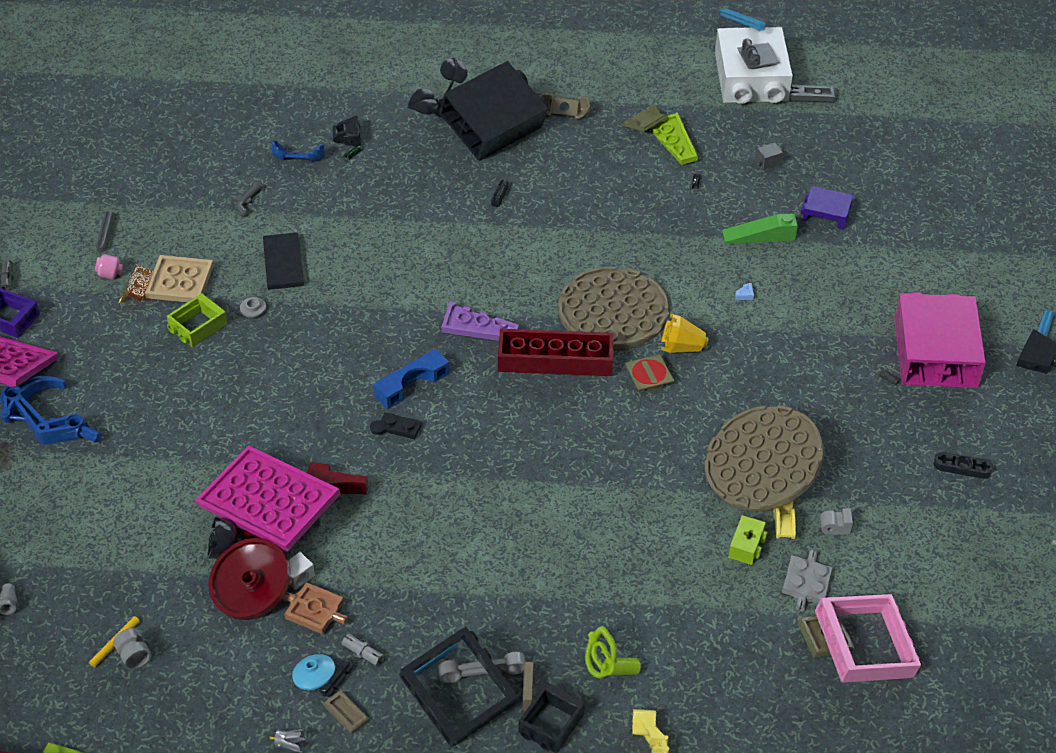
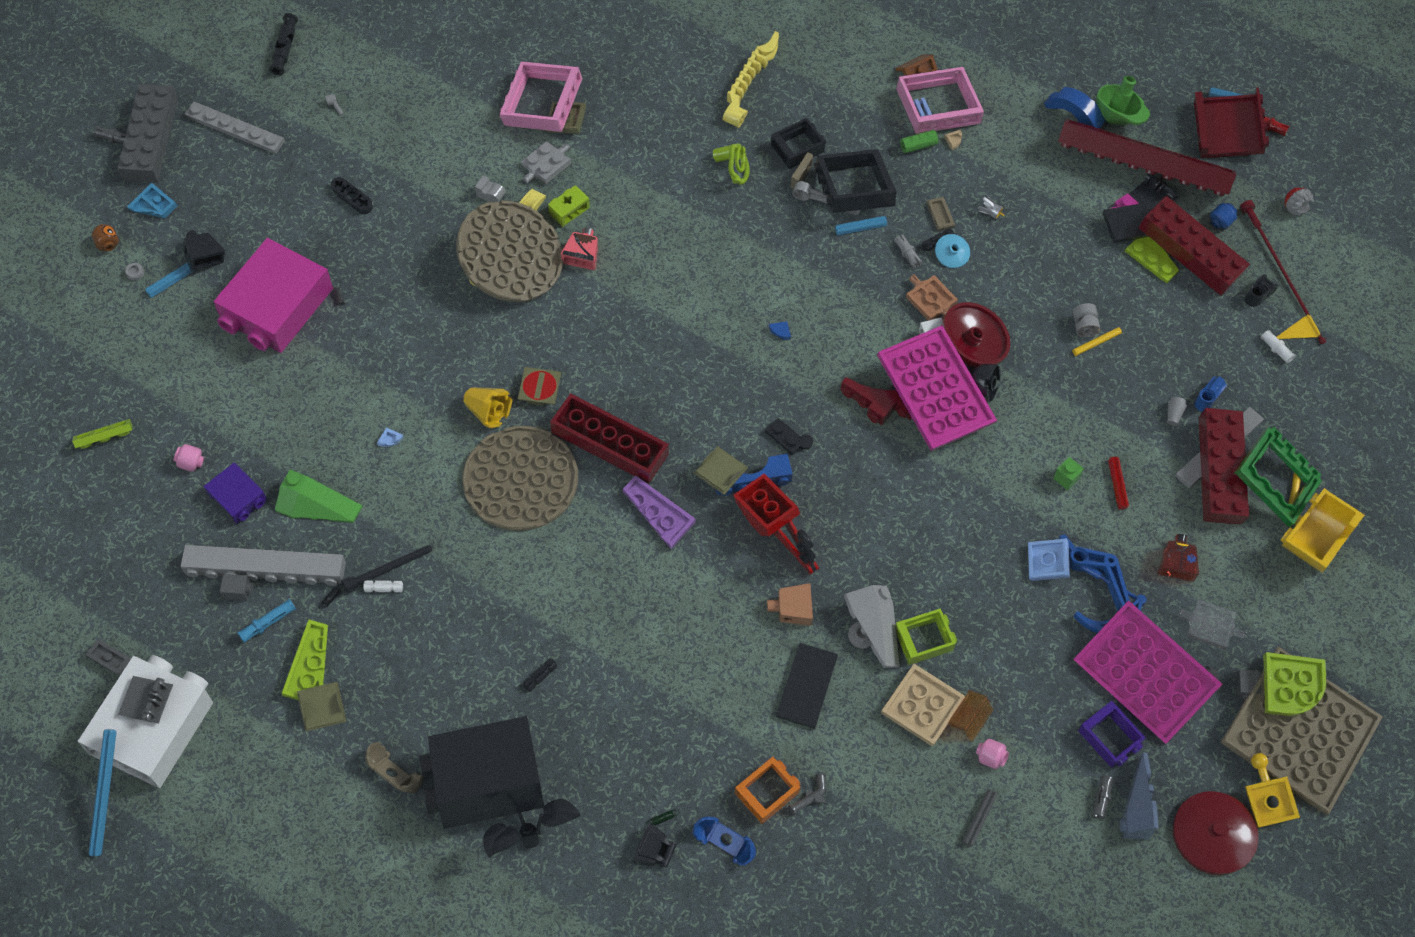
camera: 155 degrees left, 15 degrees up
(53, 510) = (1118, 483): none -> red axle
(103, 414) = (1048, 559): none -> light blue tile
(106, 491) = (1068, 473): none -> bright green brick
(246, 311) = (876, 615): none -> light grey wedge
(282, 174) = (753, 804): none -> orange window
(321, 301) = (793, 605): none -> nougat torso
(371, 340) = (771, 509): none -> red slope
(439, 361) = (720, 470): none -> olive piece
(456, 515) = (781, 330): none -> blue tile
(662, 199) = (383, 586): none -> white axle
(687, 190) = (352, 583): none -> black piece
(700, 503) = (581, 250): none -> coral torso
(730, 145) = (258, 626): none -> dark azure pin
(761, 175) = (264, 564): none -> light grey brick
(886, 214) = (188, 457): none -> bright pink head
(968, 205) = (102, 434): none -> lime plate

